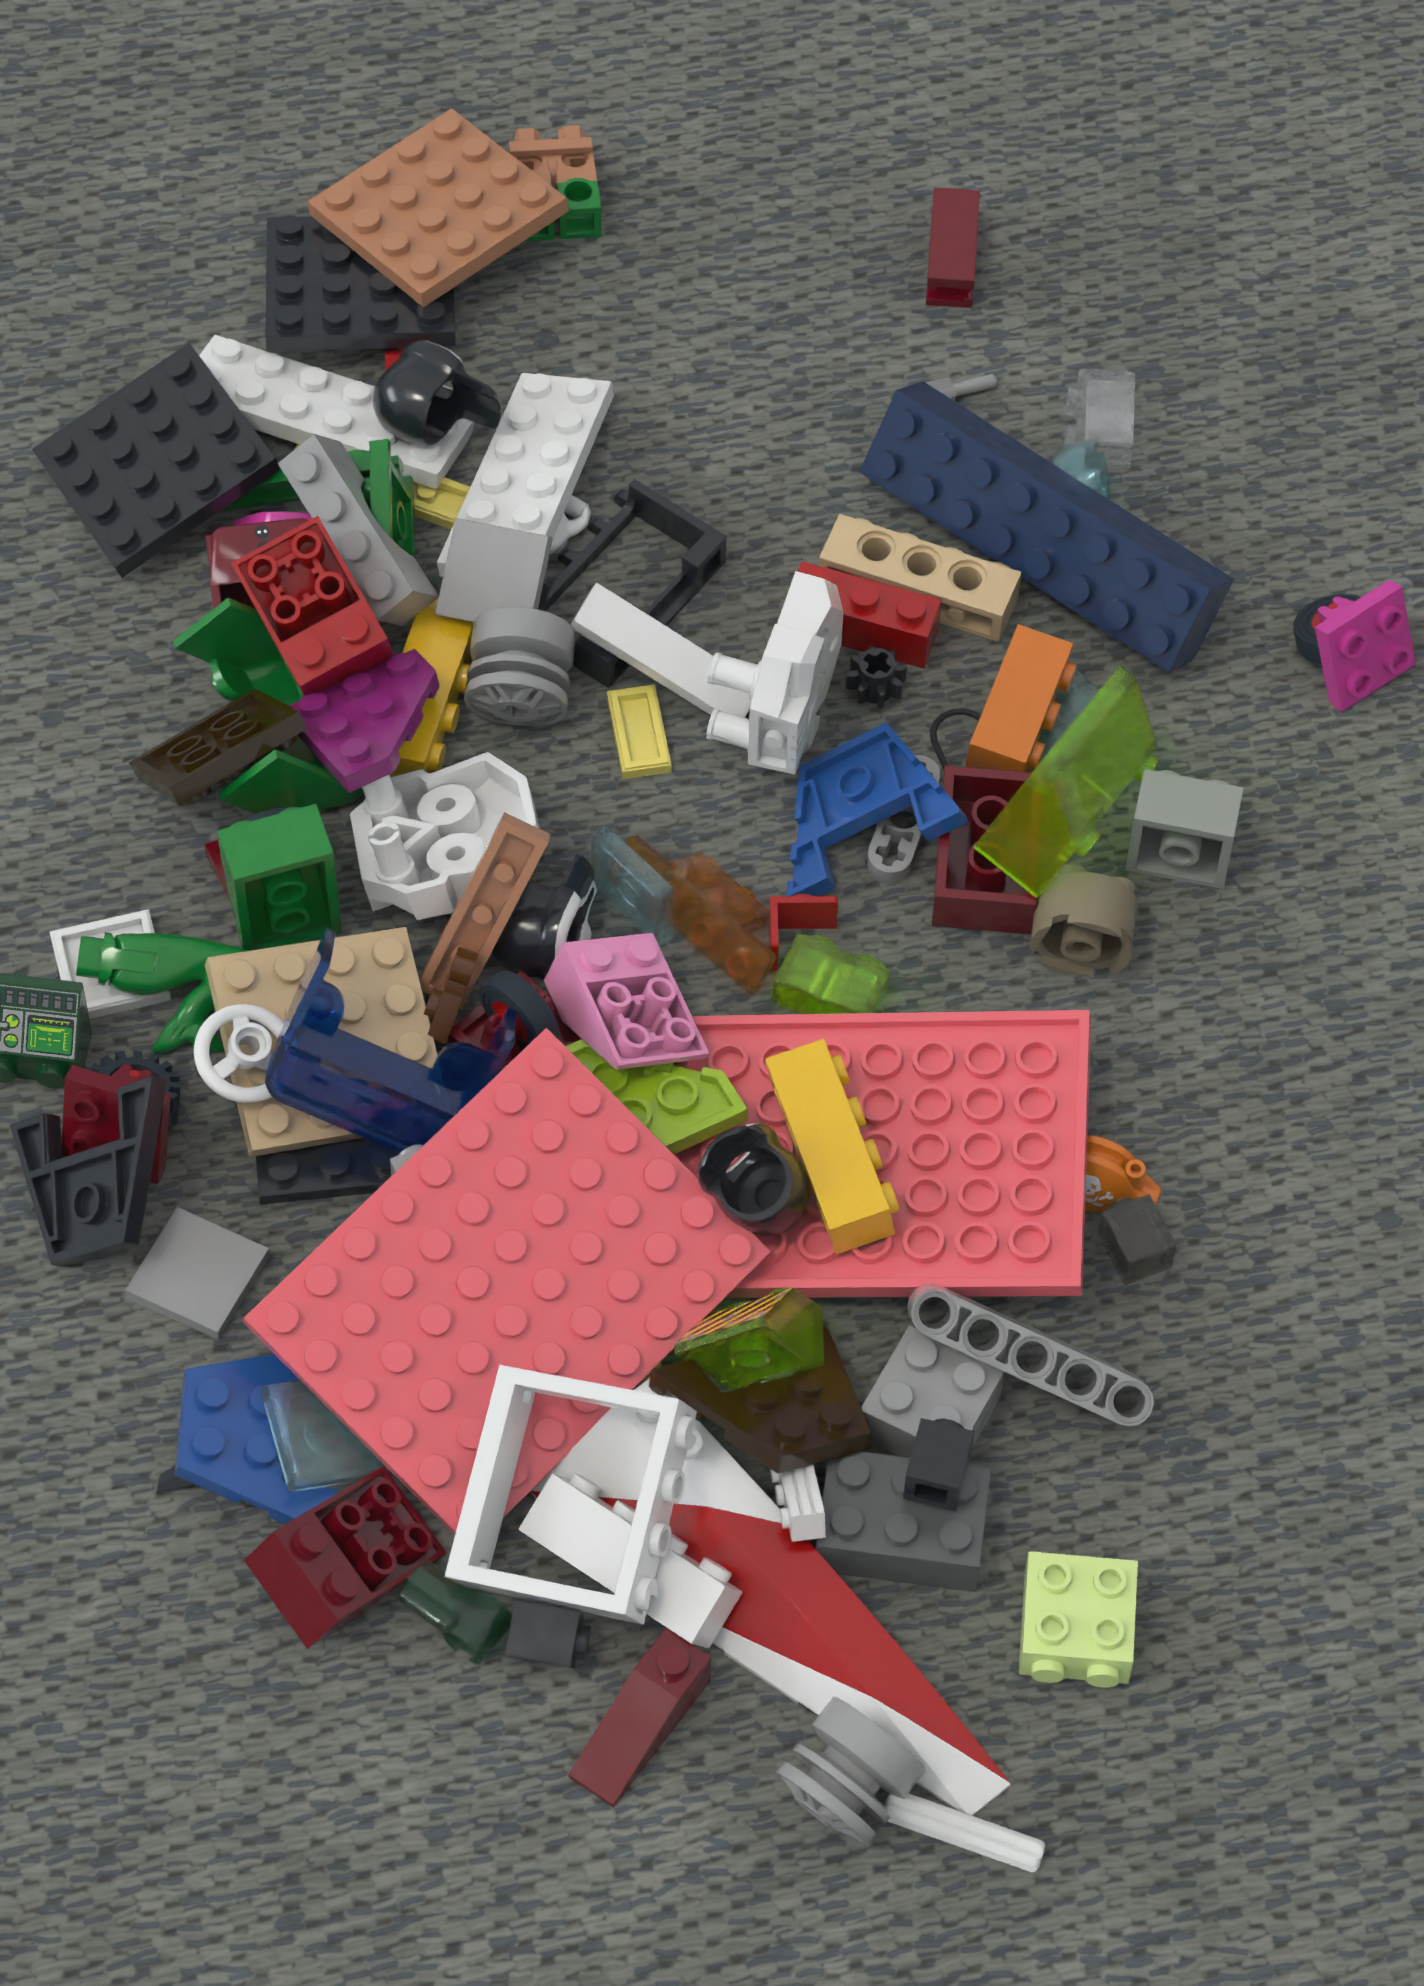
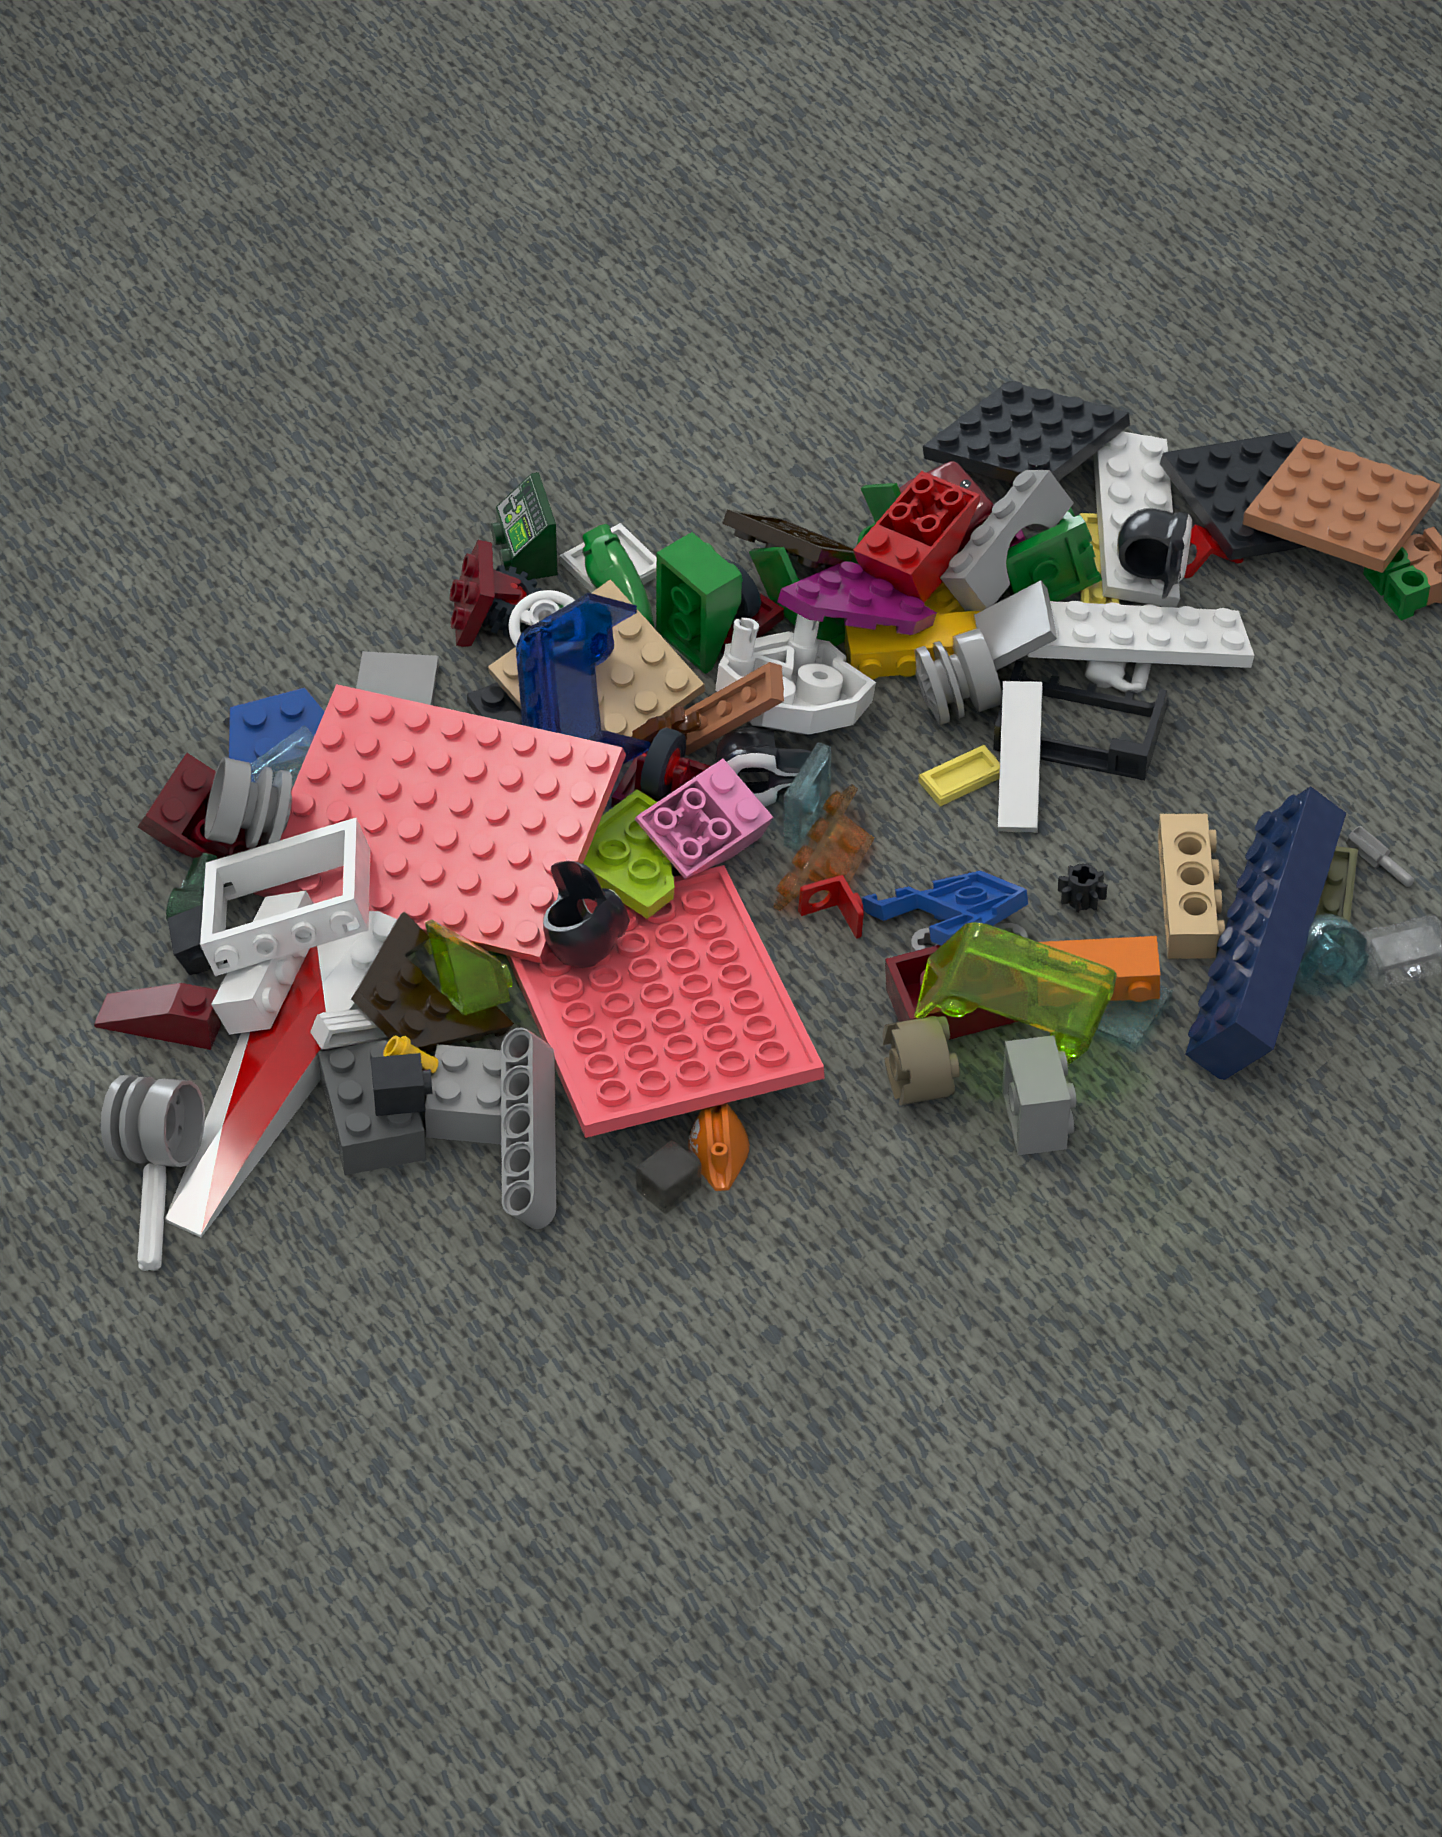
camera: 70 degrees right, 10 degrees down
(97, 1196) = (425, 593): black wing -> none
(401, 1487) = (254, 806): none -> light grey wheel
(788, 680) = (1028, 812): white brick -> none
(828, 981) = (797, 940): clear neon green brick -> none
(831, 1146) = (636, 958): yellow brick -> none
(881, 1445) = (403, 1046): none -> yellow pin
(883, 616) = (1131, 861): red brick -> none
(1078, 1619) = (335, 1225): yellowish green brick -> none
(1356, 641) = (1277, 1161): dark pink plate -> none

